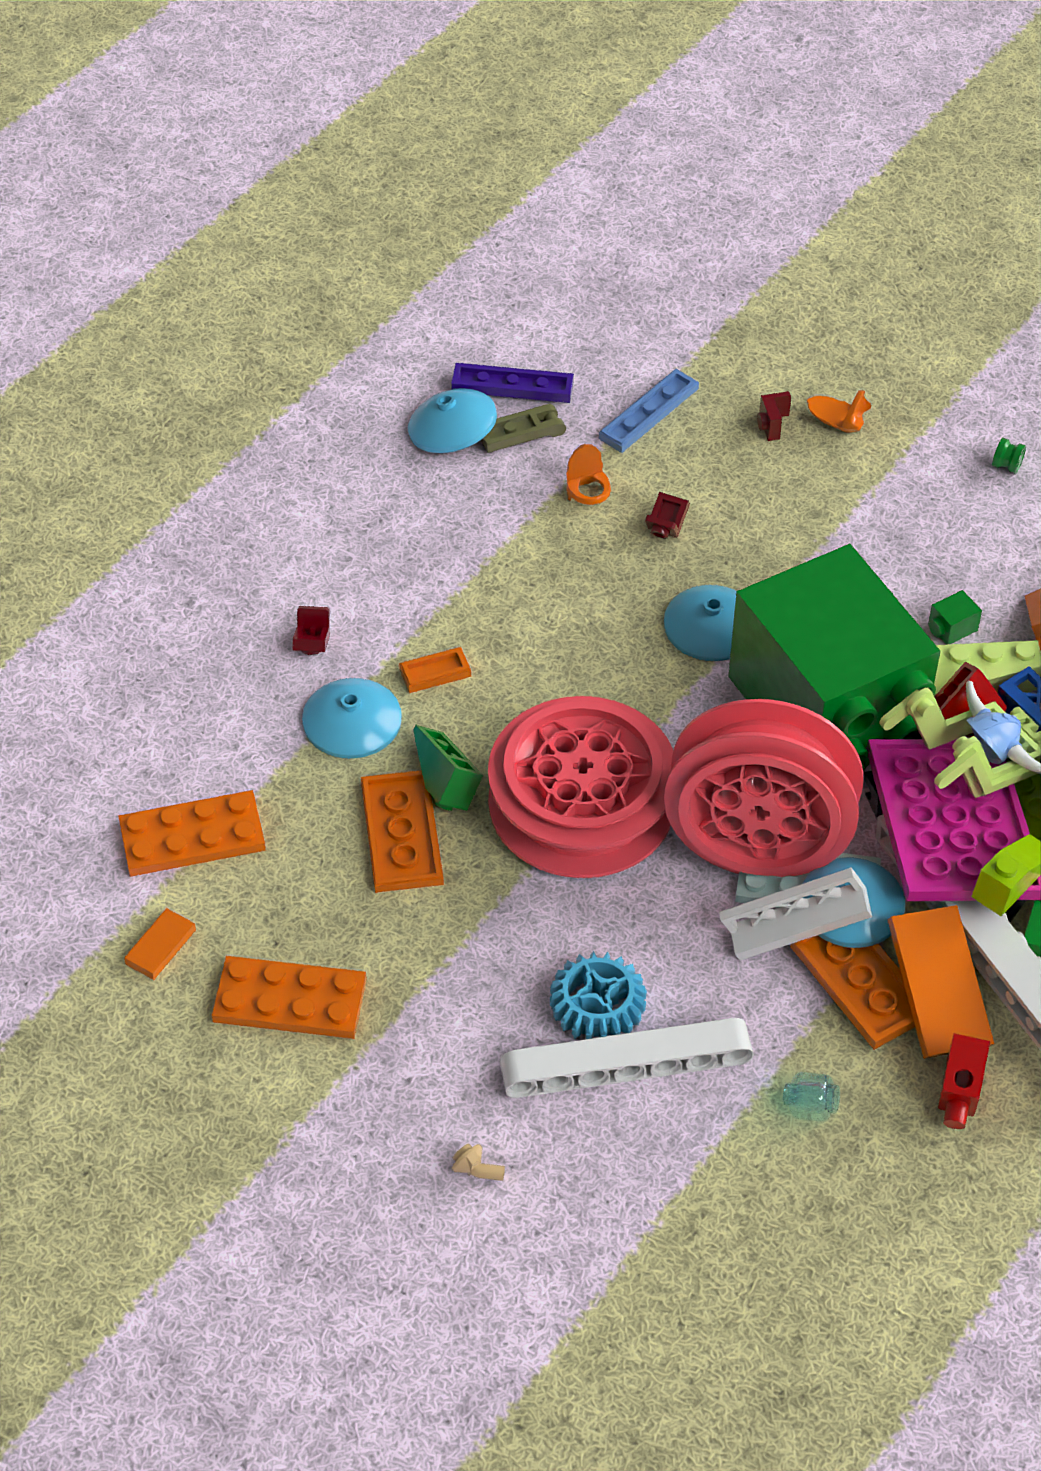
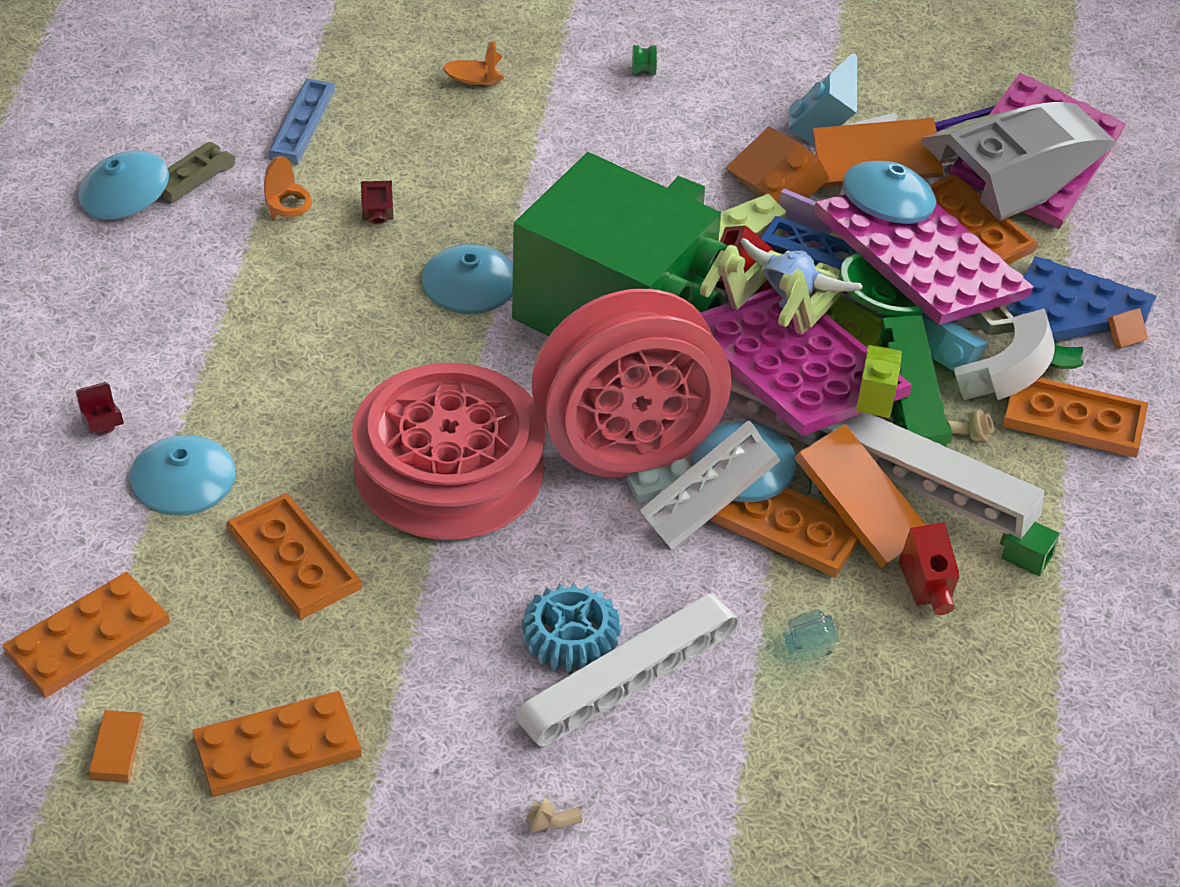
camera: 30 degrees left, 5 degrees down
(435, 669) = (238, 404): orange tile -> none
(446, 770) = (309, 485): green slope -> none
(514, 382) = (162, 134): dark purple plate -> none
(771, 411) = (418, 88): dark red bracket -> none

